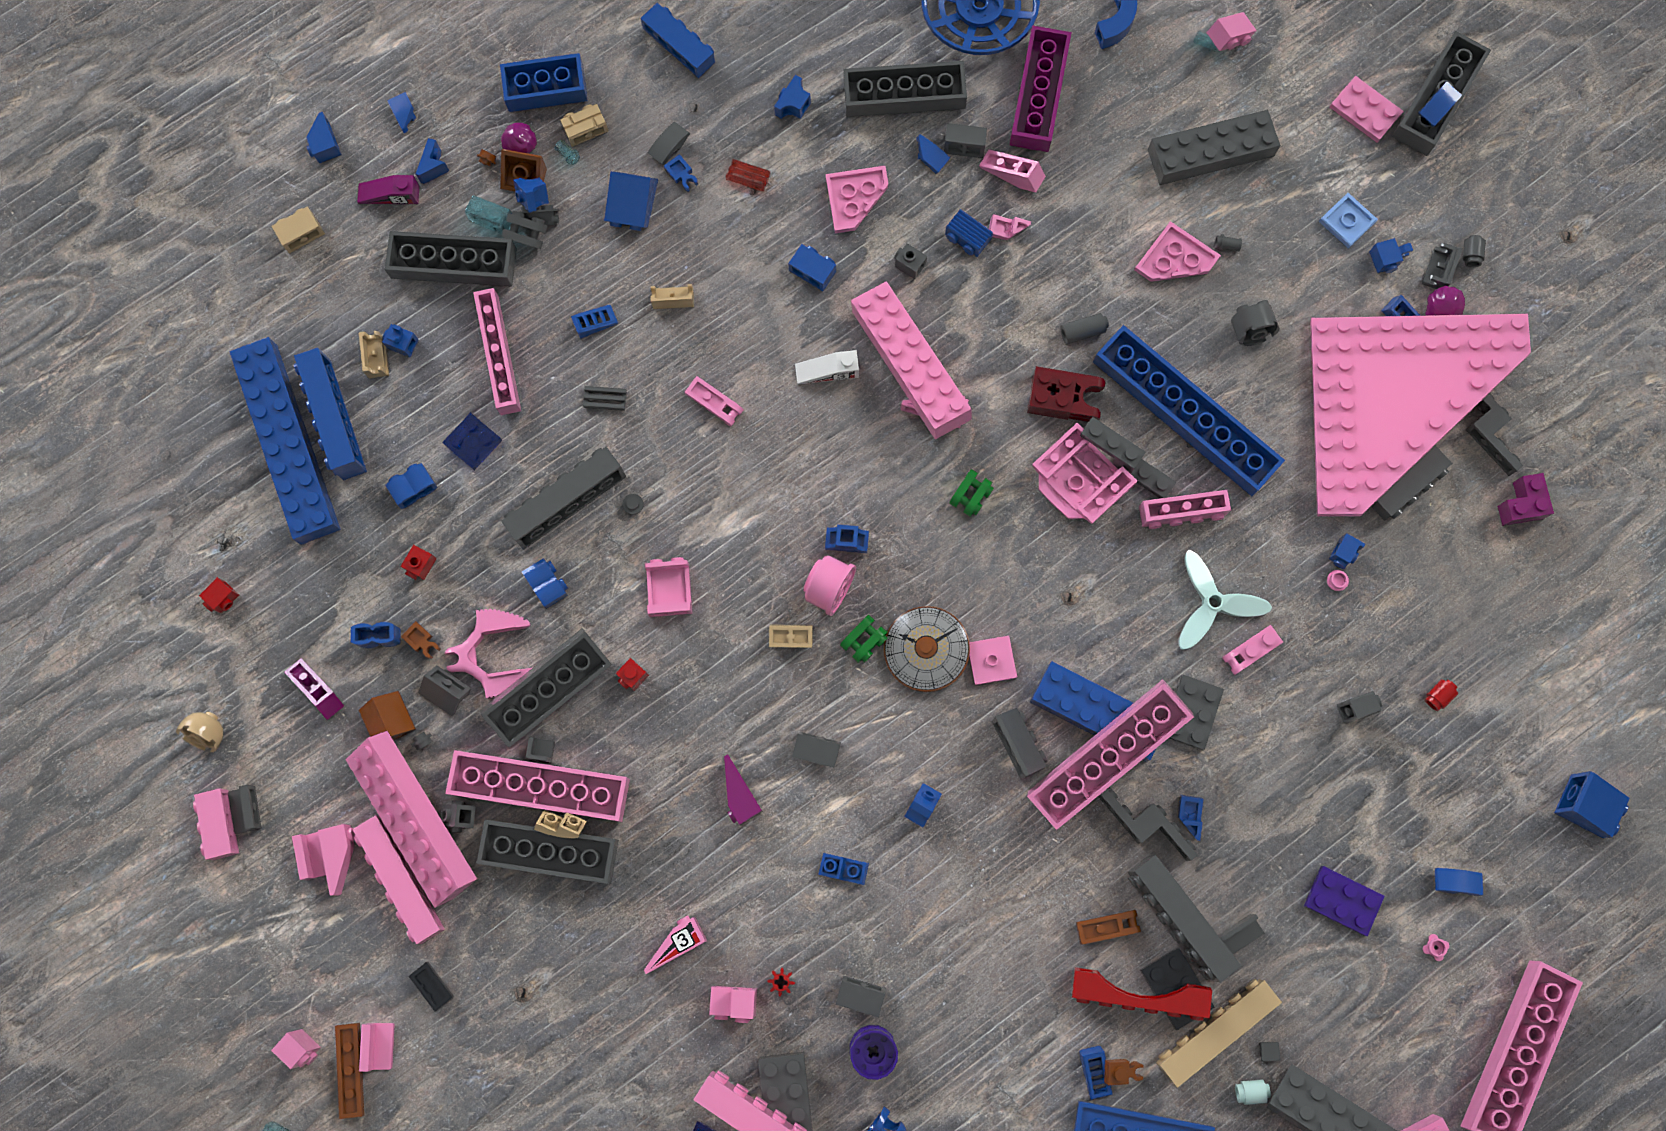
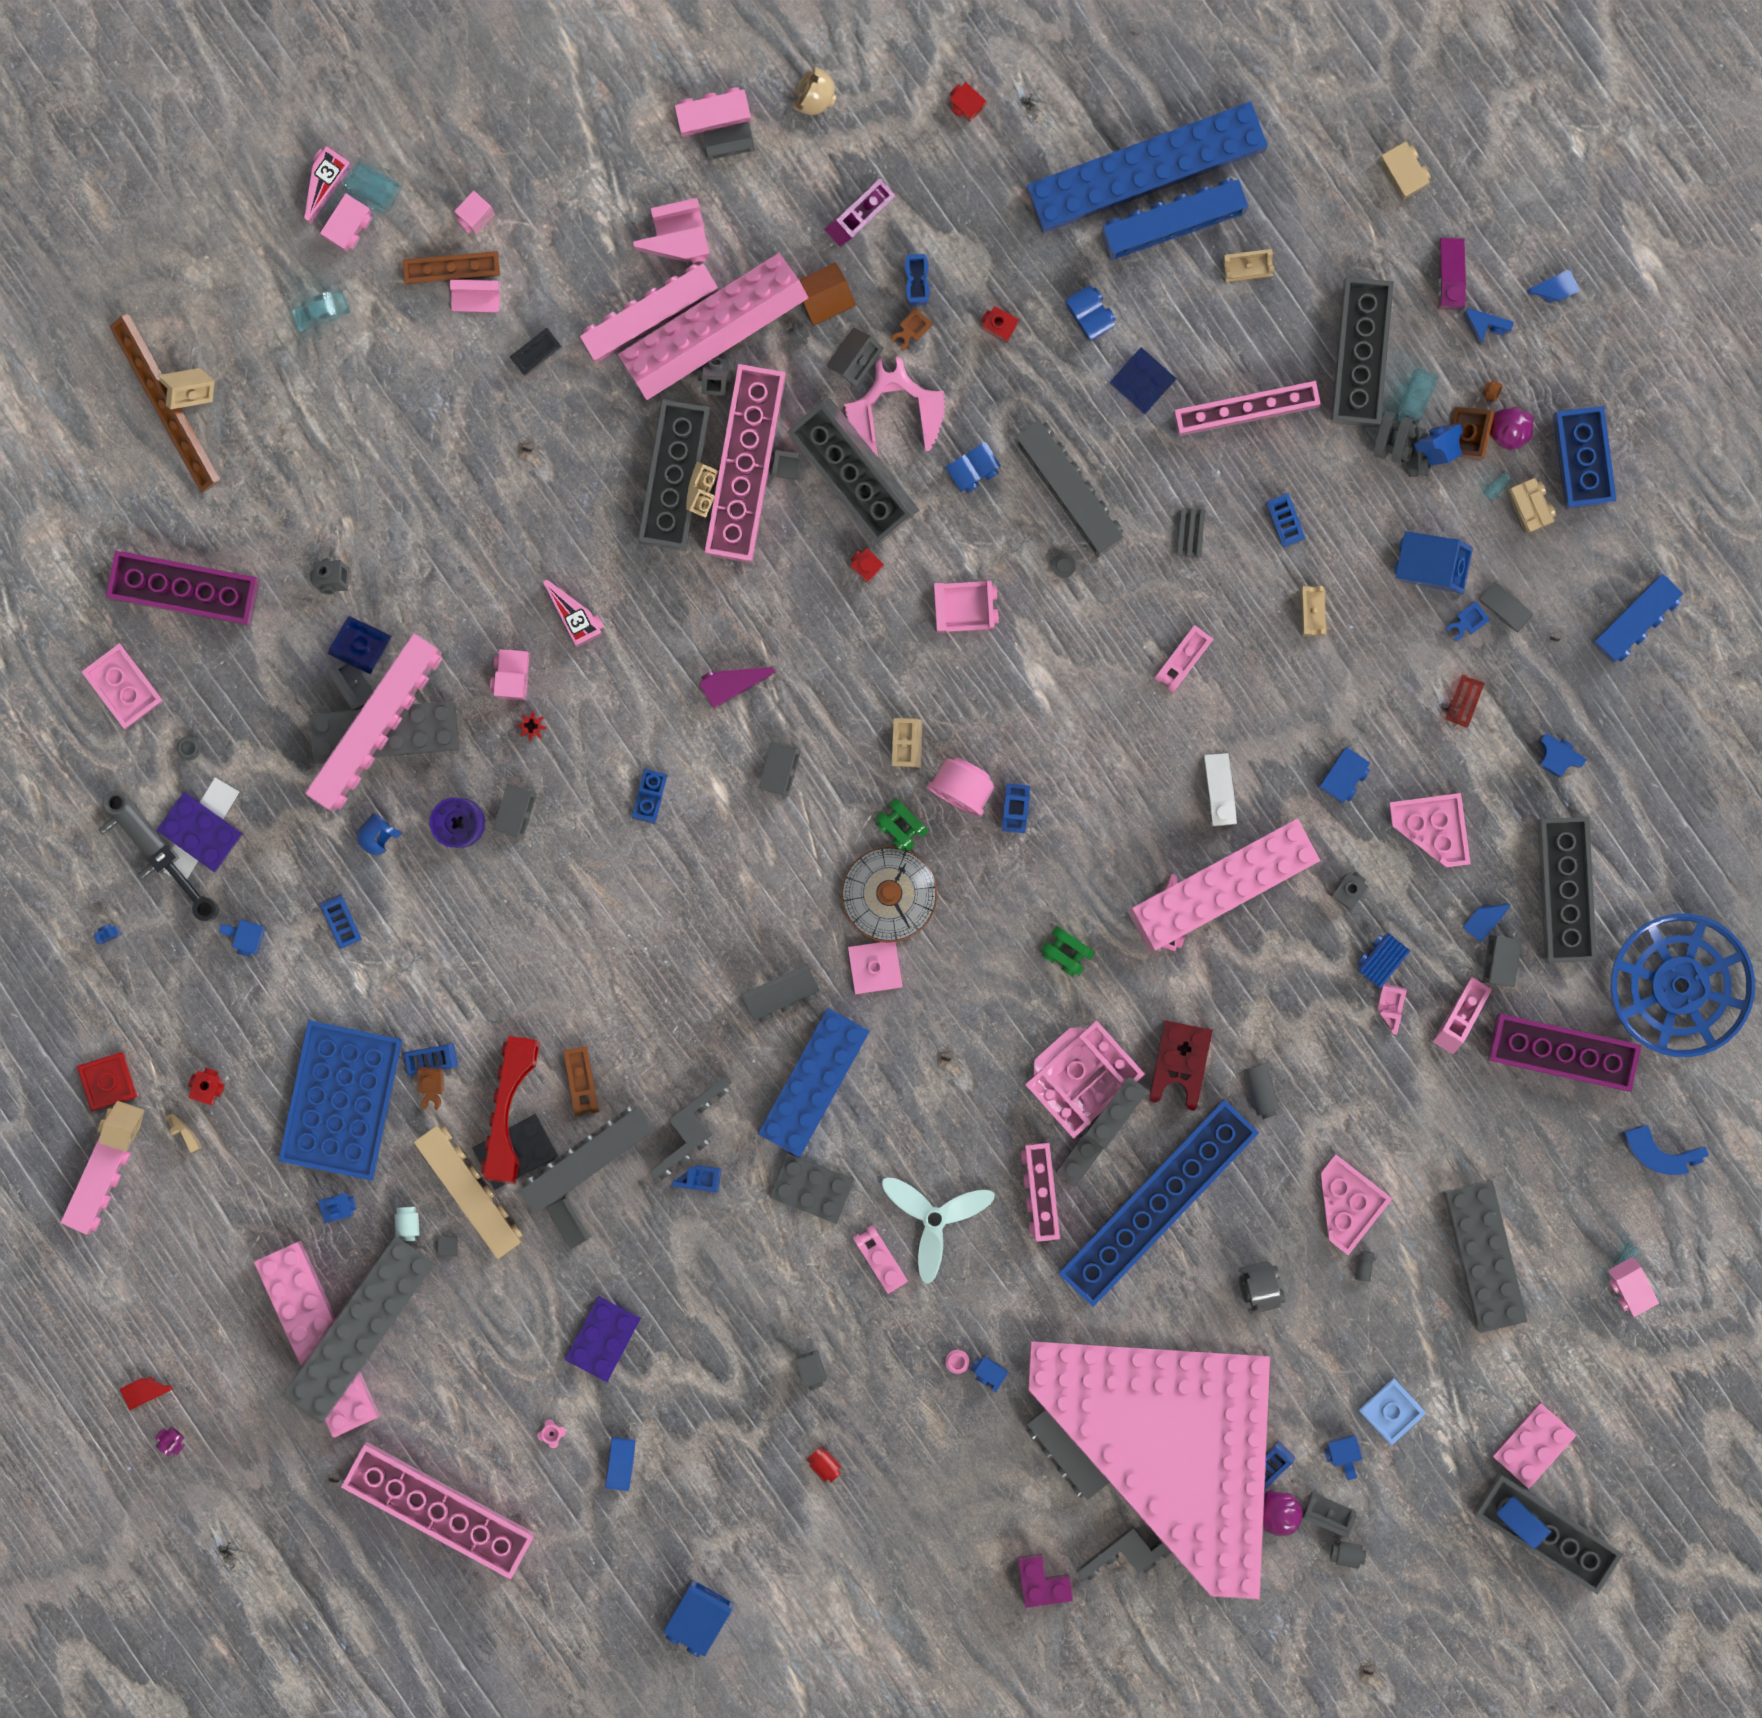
camera: 90 degrees right, 10 degrees up
(322, 140) = (1518, 194): blue slope -> none
(400, 340) = (1264, 294): blue brick -> none
(923, 805) = (716, 884): blue brick -> none
(1110, 754) = (763, 1087): bright pink brick -> none

